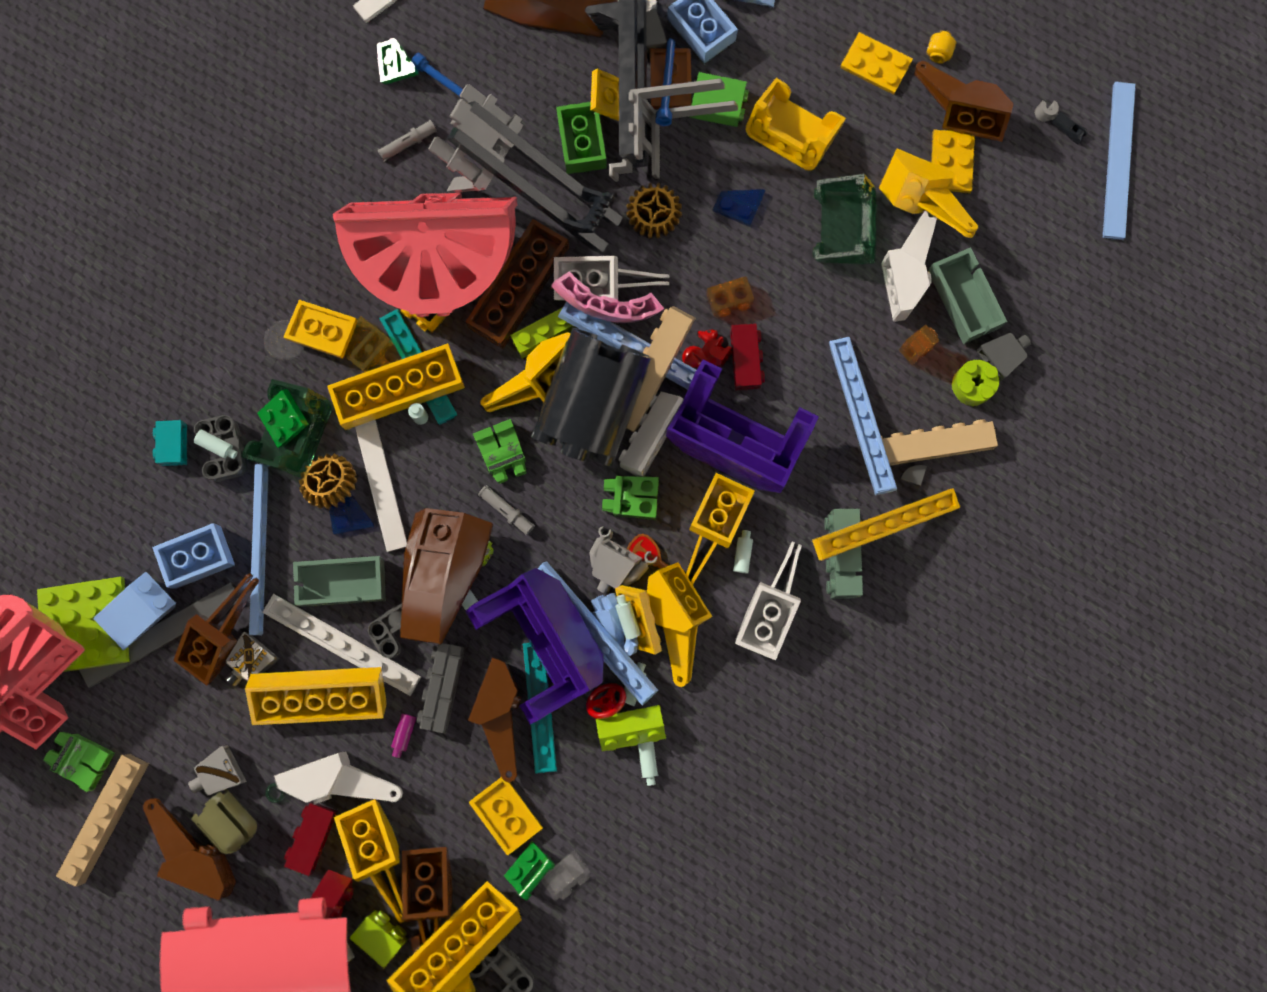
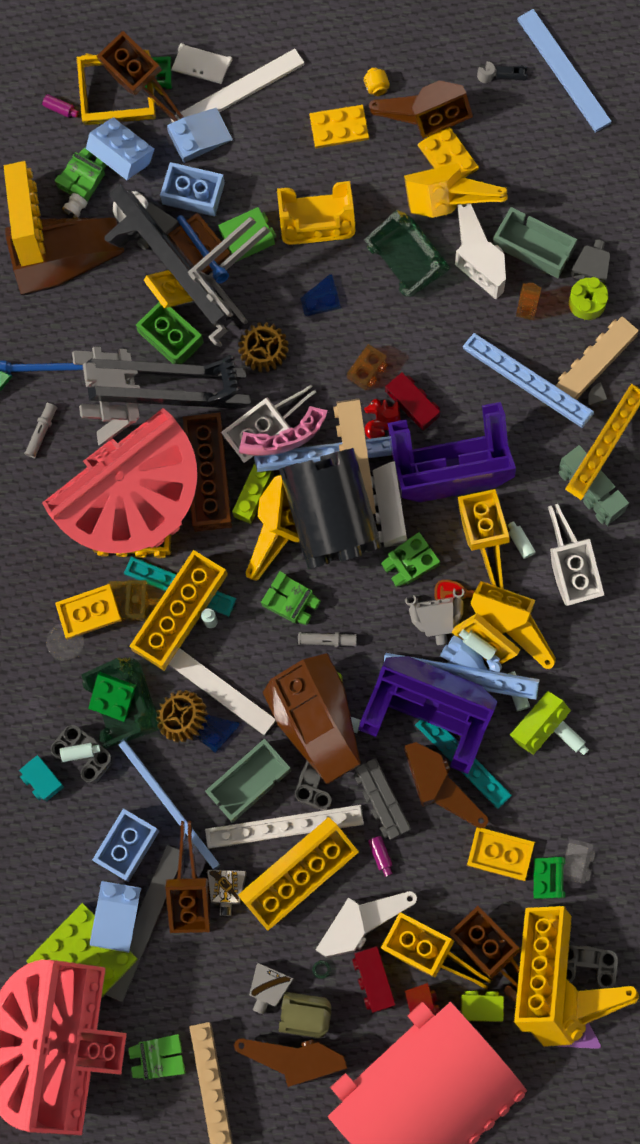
camera: 30 degrees left, 5 degrees down
(607, 702) = (509, 718): red piece -> none

